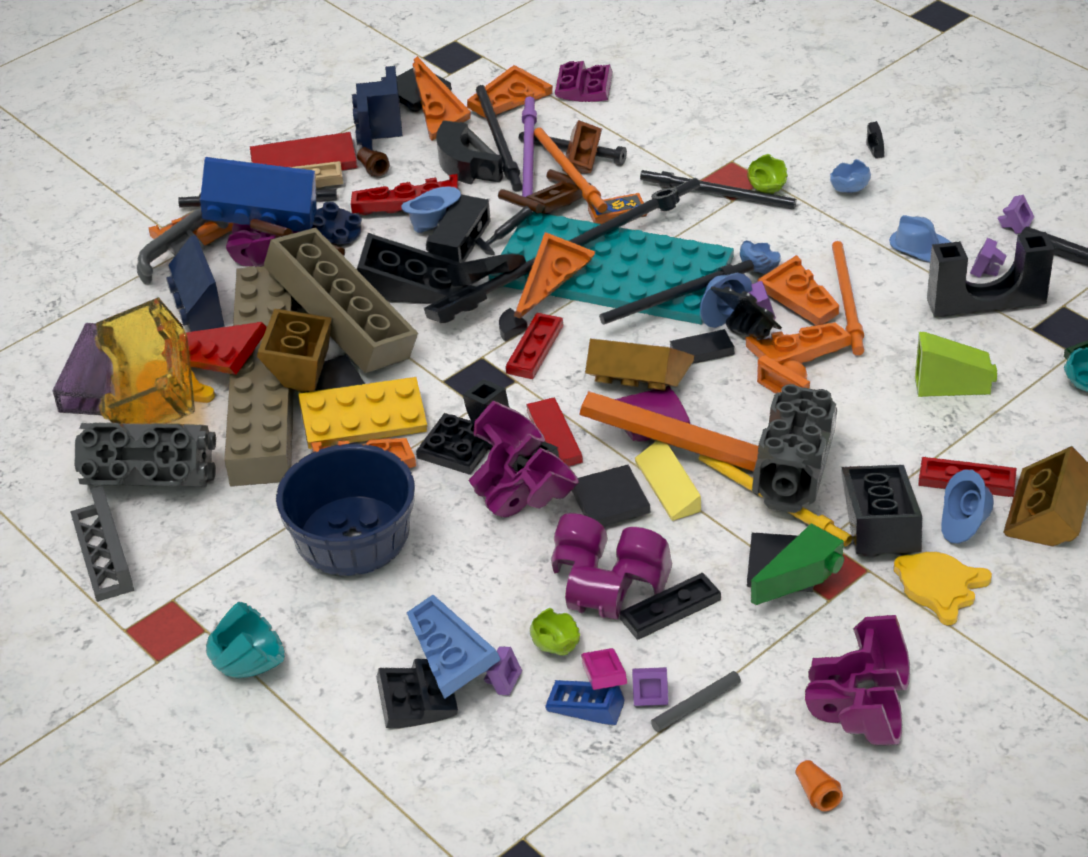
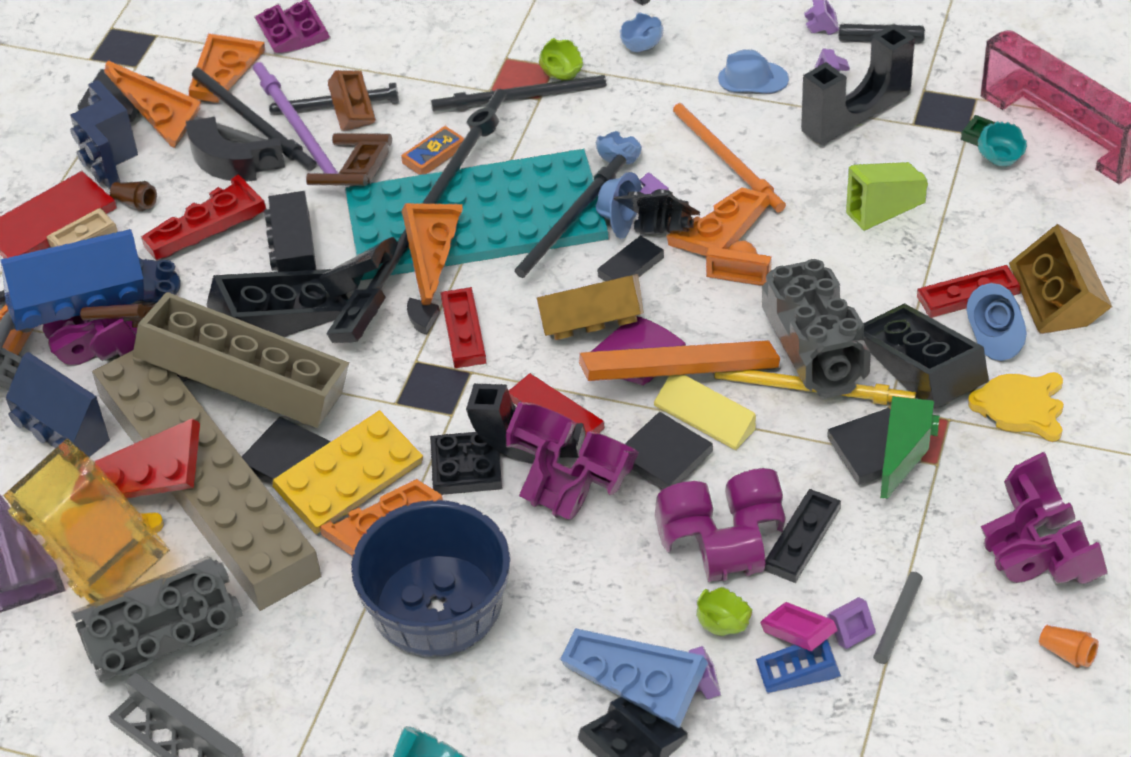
camera: 30 degrees left, 5 degrees up
(295, 348) = (244, 430): pearl gold slope -> none
(430, 207) = (245, 220): medium blue piece -> none
(504, 230) = (339, 218): black piece -> none
(589, 192) = (403, 144): orange bar -> none
(799, 292) = (683, 170): orange wing -> none

